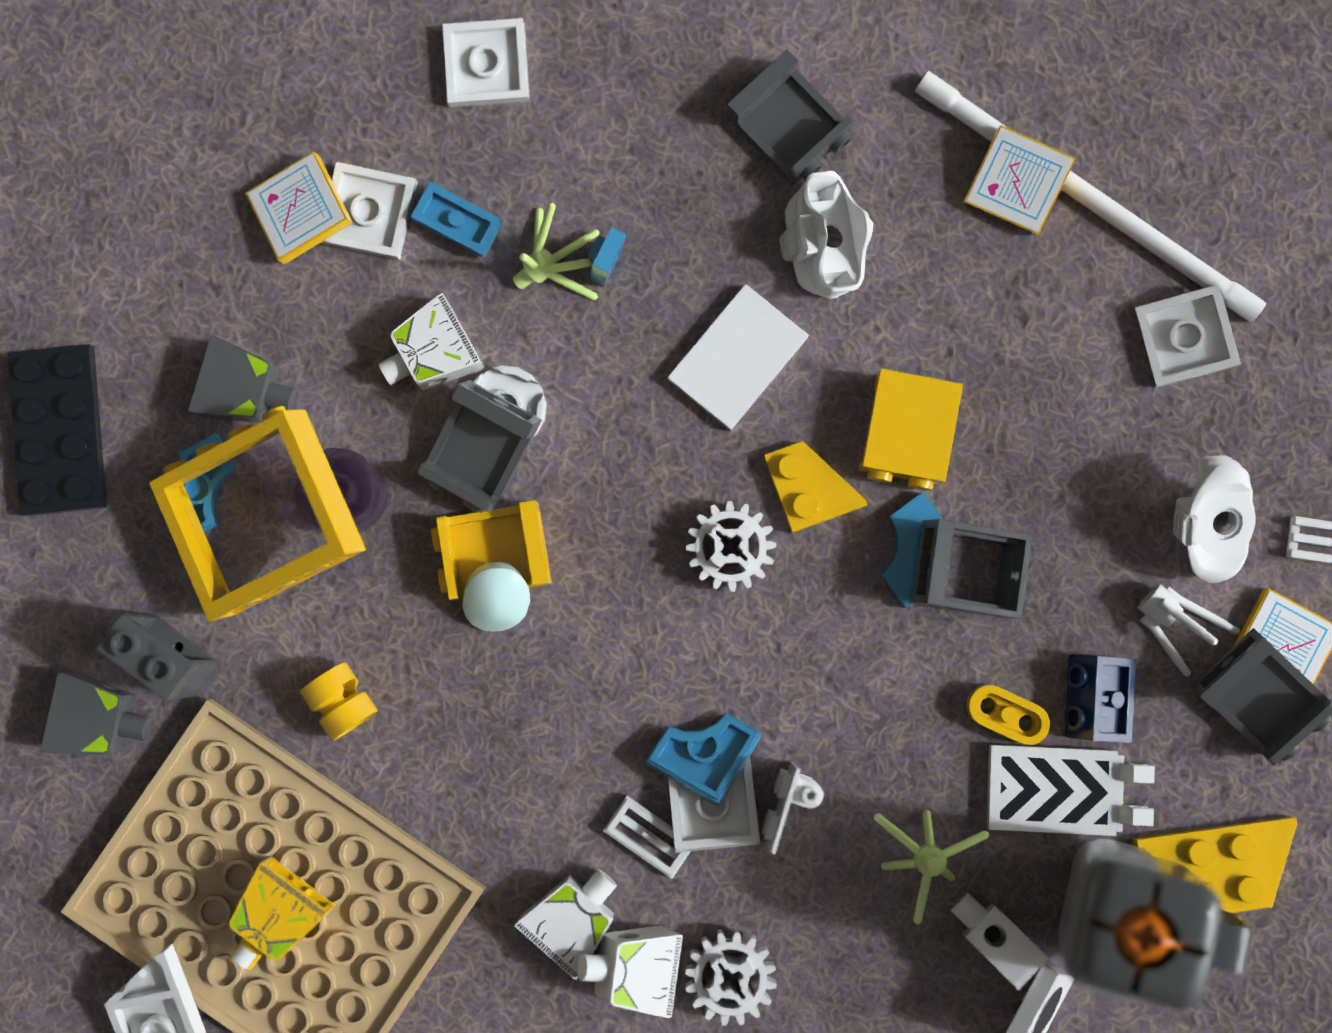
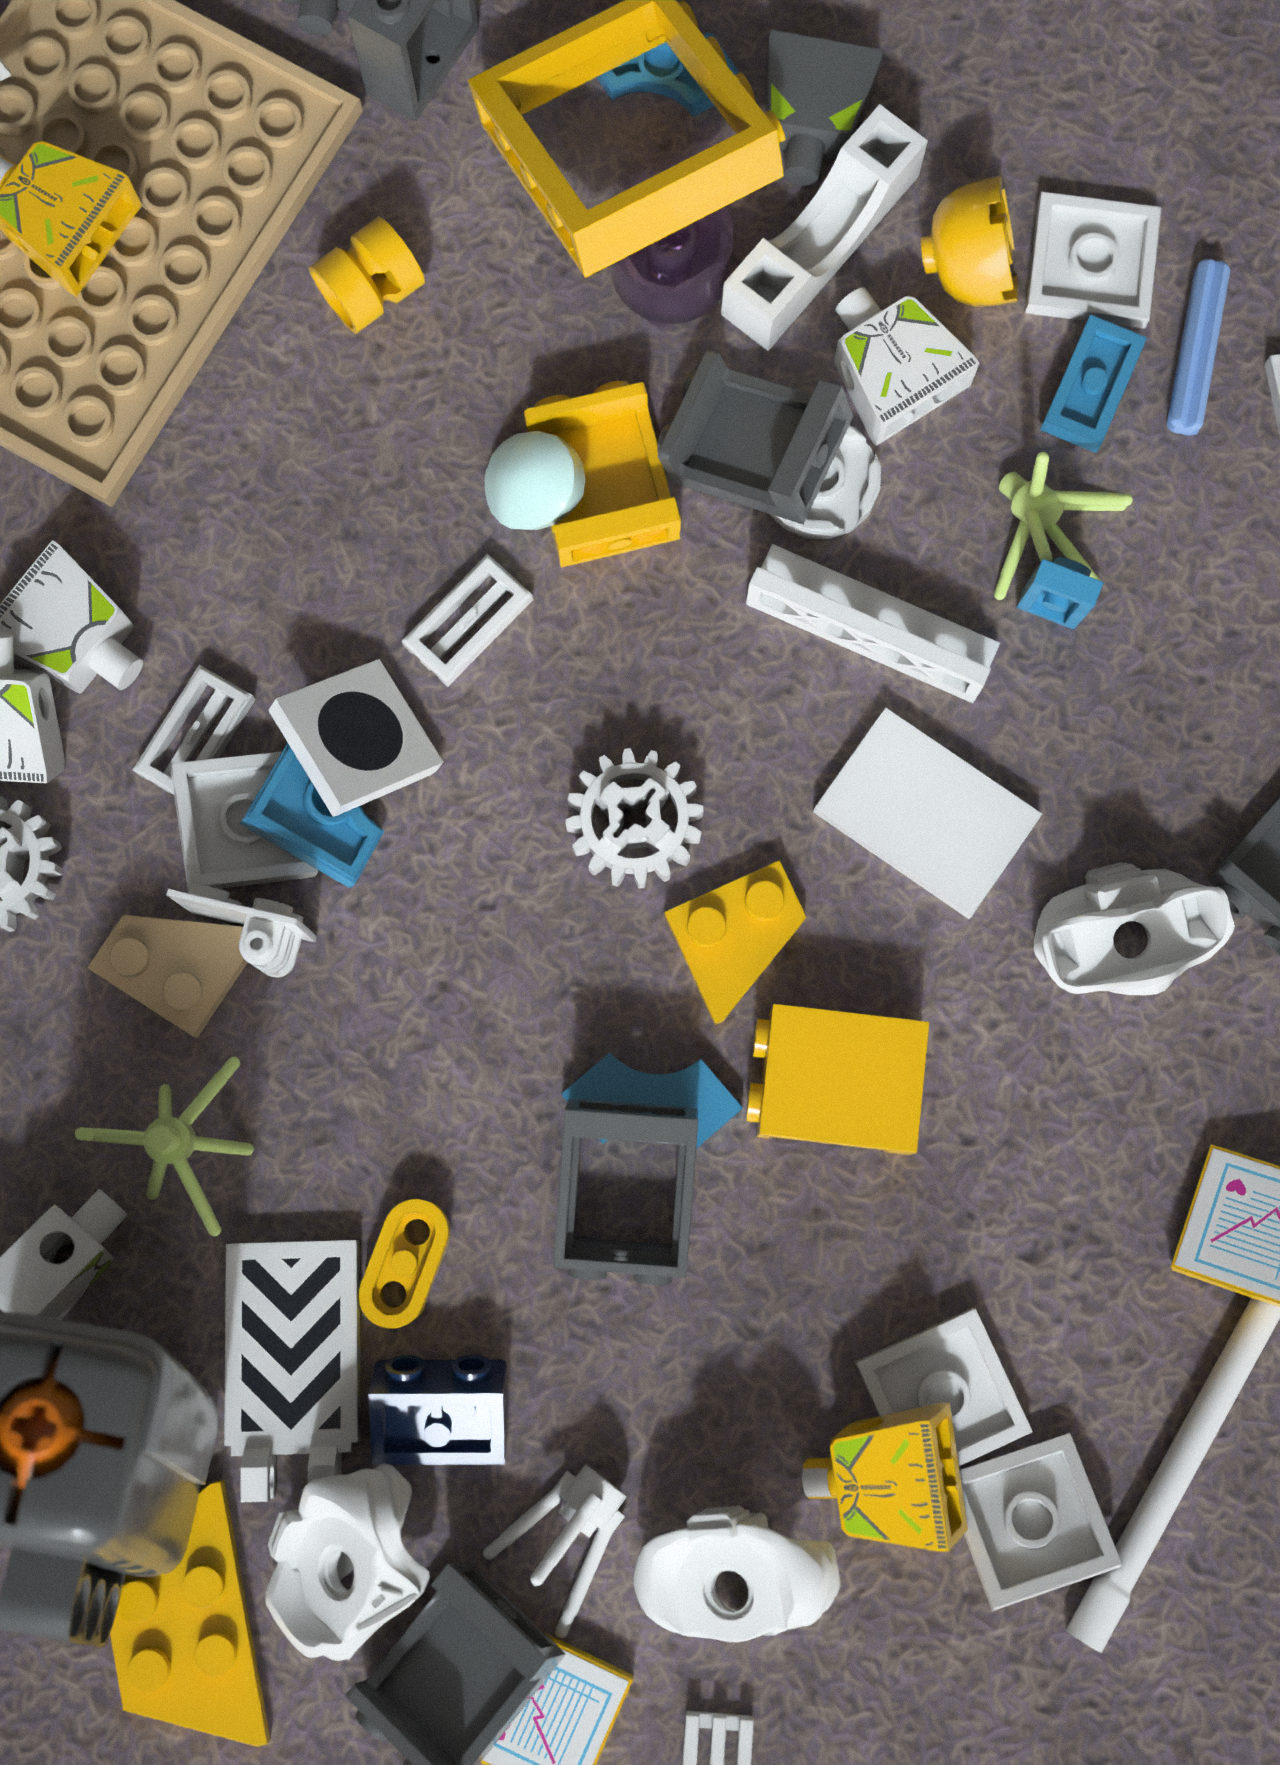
camera: 85 degrees right, 5 degrees down
(298, 208) = (1085, 160): white tile -> none
(334, 387) = (791, 269): none -> white arch
(356, 288) = (973, 245): none -> yellow cylinder
(436, 148) = (1198, 347): none -> light blue axle
(561, 622) = (478, 643): none -> white tile
(609, 380) = (872, 623): none -> white fence
(663, 727) = (355, 737): none -> white tile
(805, 858) = (172, 966): none -> tan wing
(1108, 383) = (951, 1366): none -> white tile
(1160, 416) = (895, 1479): none -> yellow torso
(1181, 781) = (338, 1529): none -> white piece

